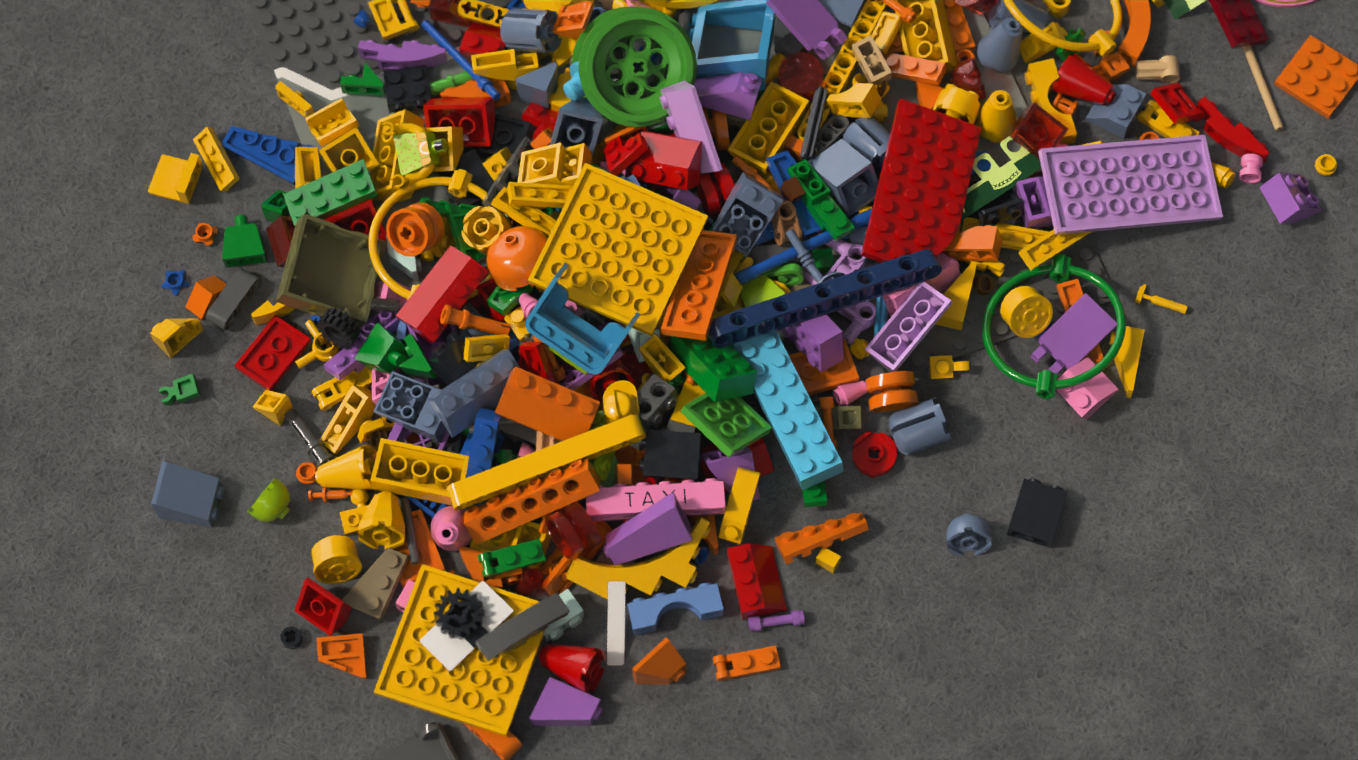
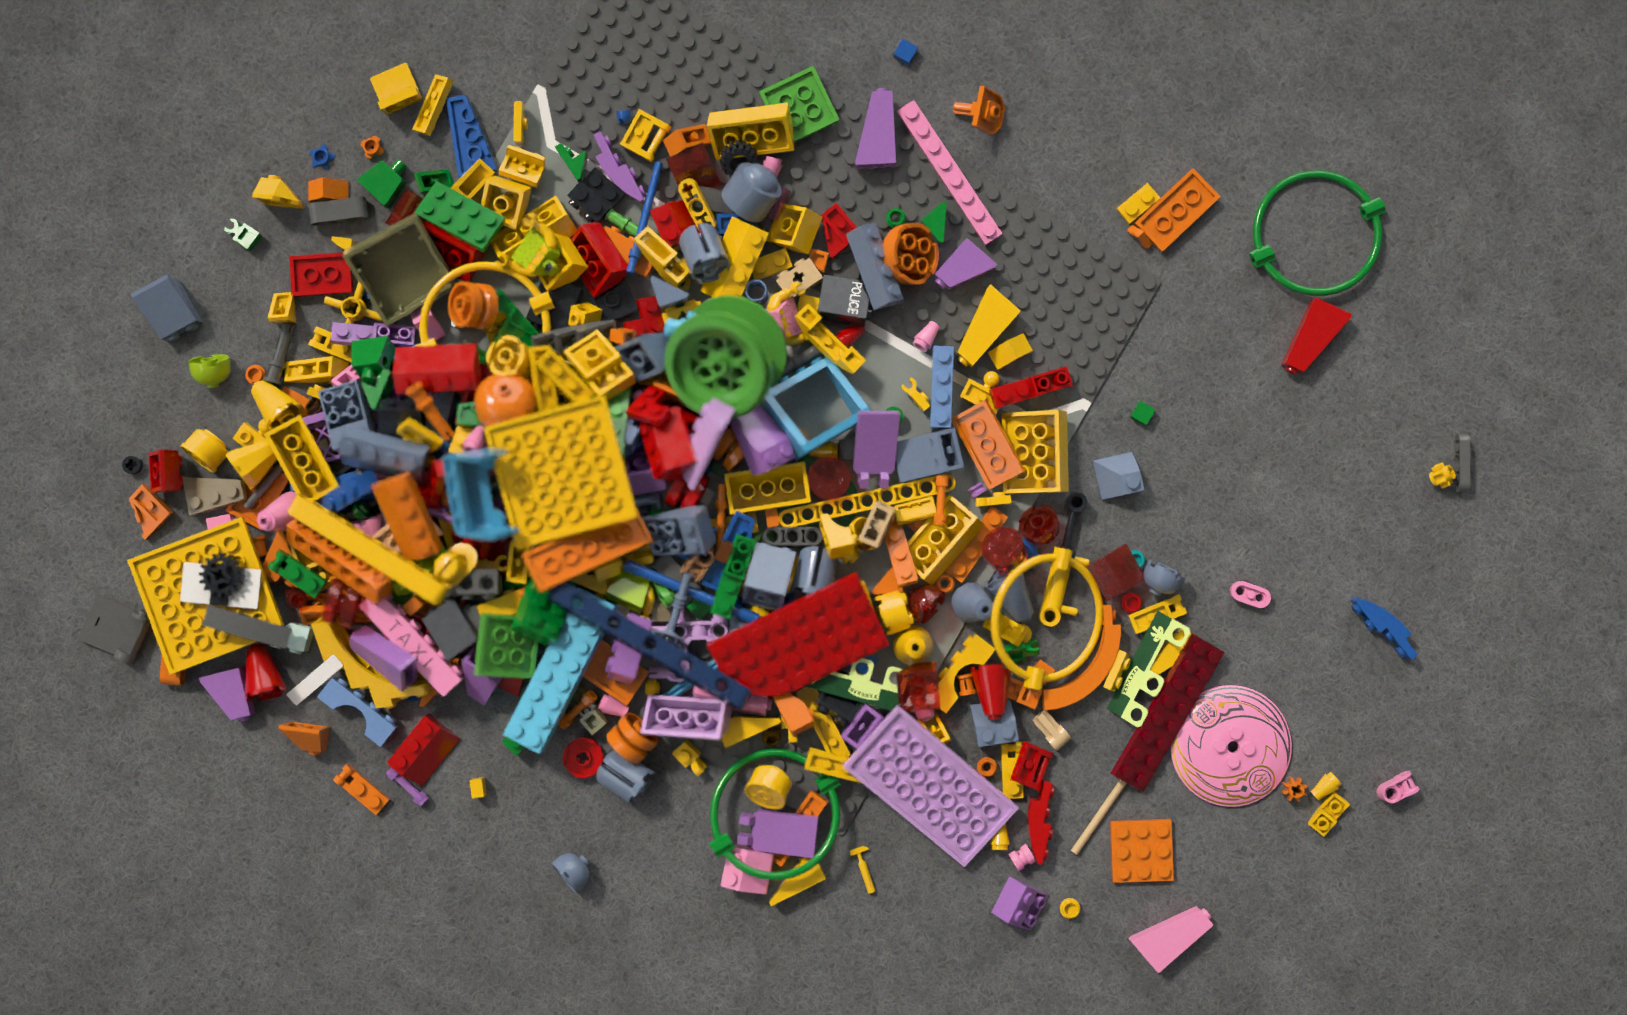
camera: 50 degrees right, 20 degrees up
(328, 494) = (250, 402): orange piece -> none
(338, 328) = (361, 312): black tyre -> none
(385, 305) = (409, 328): clear smoke pin -> none
(573, 19) = (733, 279): orange slope -> none
(739, 505) = (459, 700): yellow slope -> none
(814, 123) = (793, 521): black axle -> none
(822, 535) = (483, 765): orange wing -> none
(1037, 512) = (628, 905): black panel -> none

